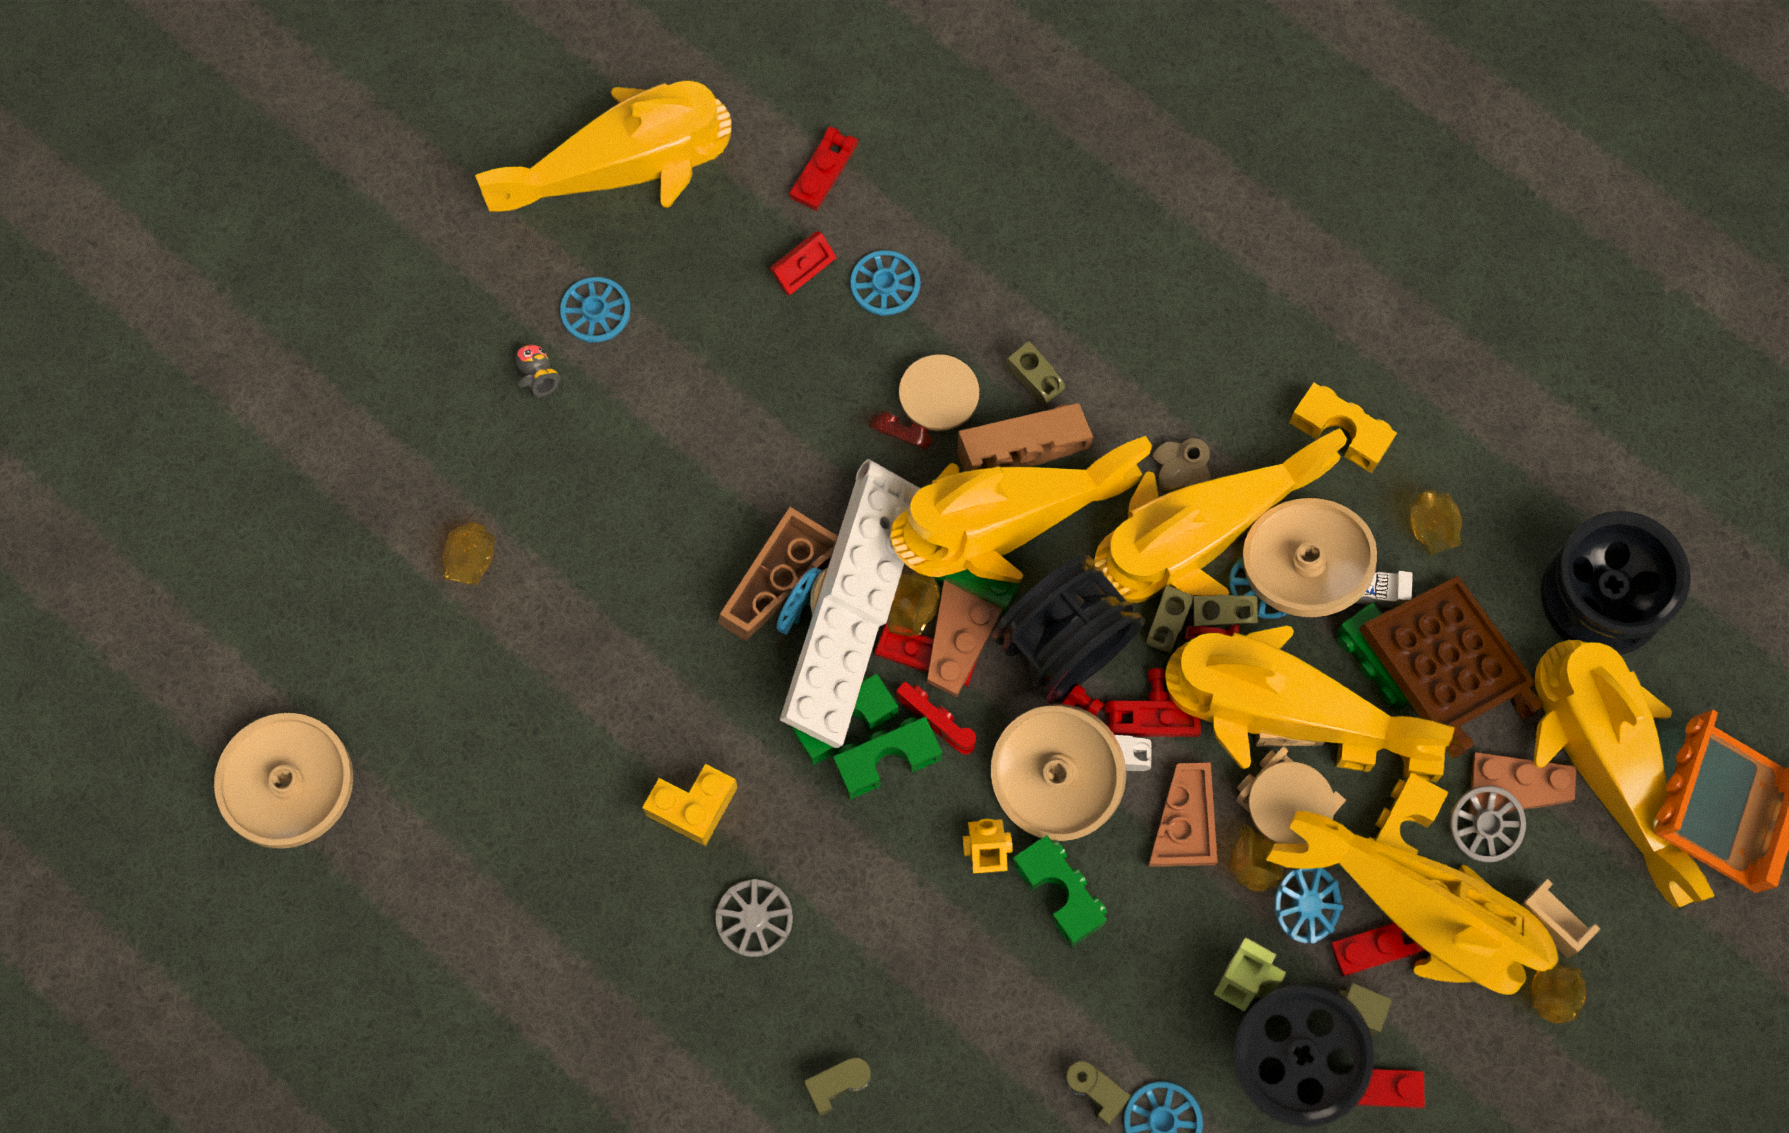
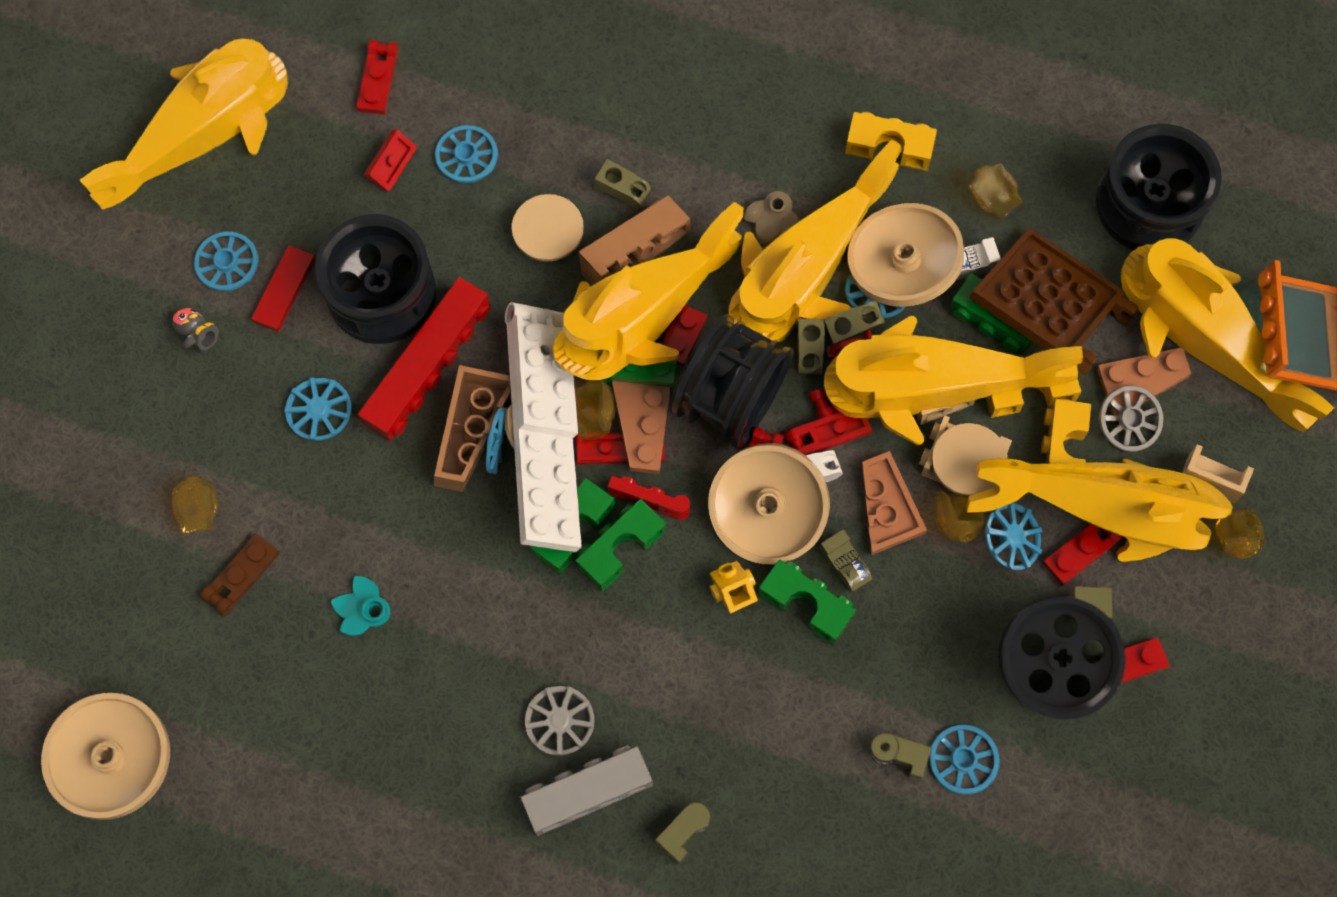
camera: 20 degrees left, 0 degrees up
(487, 643) = (240, 574): none -> reddish brown plate
(593, 720) = (357, 606): none -> teal plate
(630, 498) = (318, 408): none -> dark azure wheel
(642, 359) = (283, 288): none -> red tile
(694, 812) = (476, 650): yellow brick -> none
(711, 351) = (342, 259): none -> black wheel
(753, 1002) = (586, 790): none -> light grey brick
(759, 486) = (425, 359): none -> red brick
(889, 425) = (517, 270): clear red plate -> none
(1041, 556) = (685, 332): none -> red plate
(1117, 863) = (845, 561): none -> olive leg
(1249, 975) = (988, 612): yellowish green brick -> none

